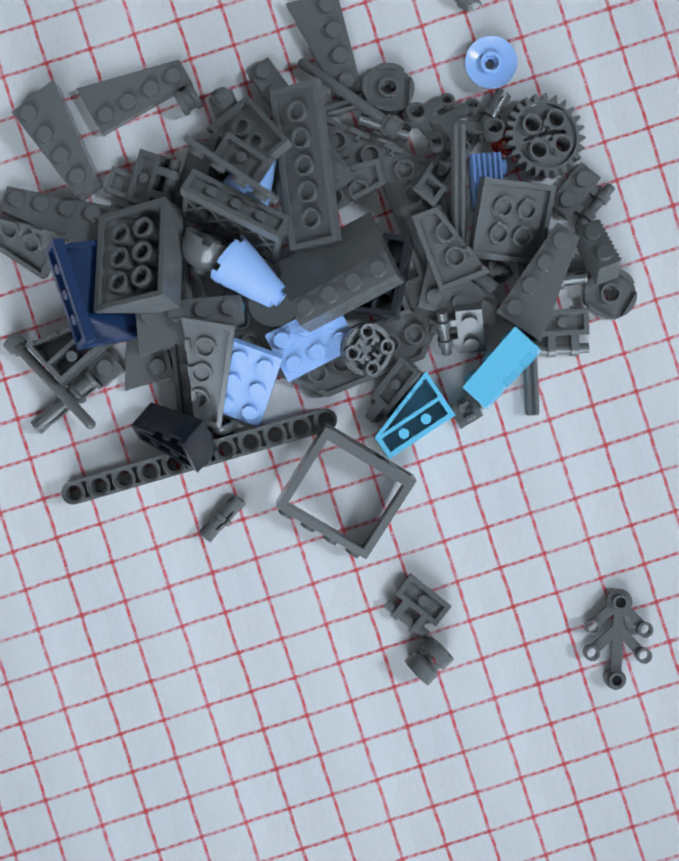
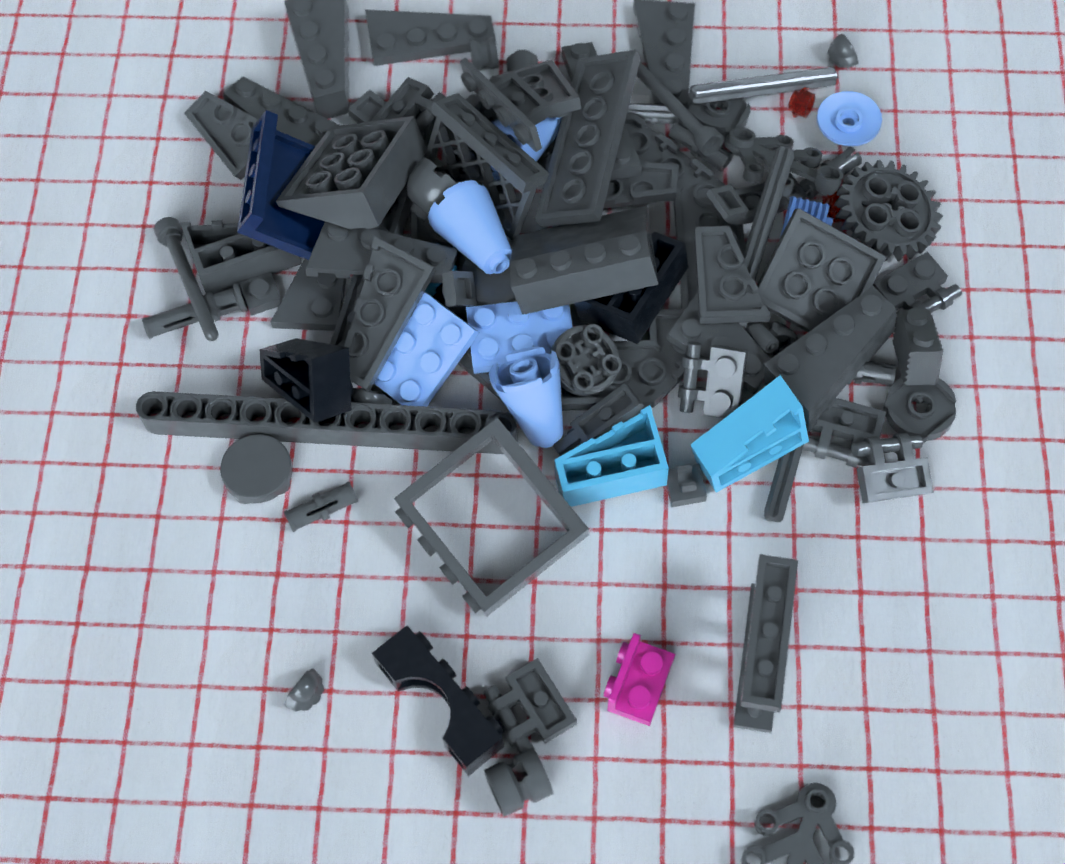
camera: 30 degrees right, 25 degrees down
(165, 507) = (256, 469): none -> dark grey tile
(256, 327) = (459, 289): none -> dark grey plate
(267, 647) = (306, 692): none -> dark grey piece
(328, 606) = (409, 664): none -> black arch
(338, 391) = (532, 393): none -> light blue cone
(416, 56) = (762, 85): none -> axle
(449, 58) = (801, 102): none -> clear red plate
(481, 561) = (639, 680): none -> dark pink bracket
(561, 520) = (766, 644): none -> dark grey fence
(608, 359) = (895, 479): none -> plate

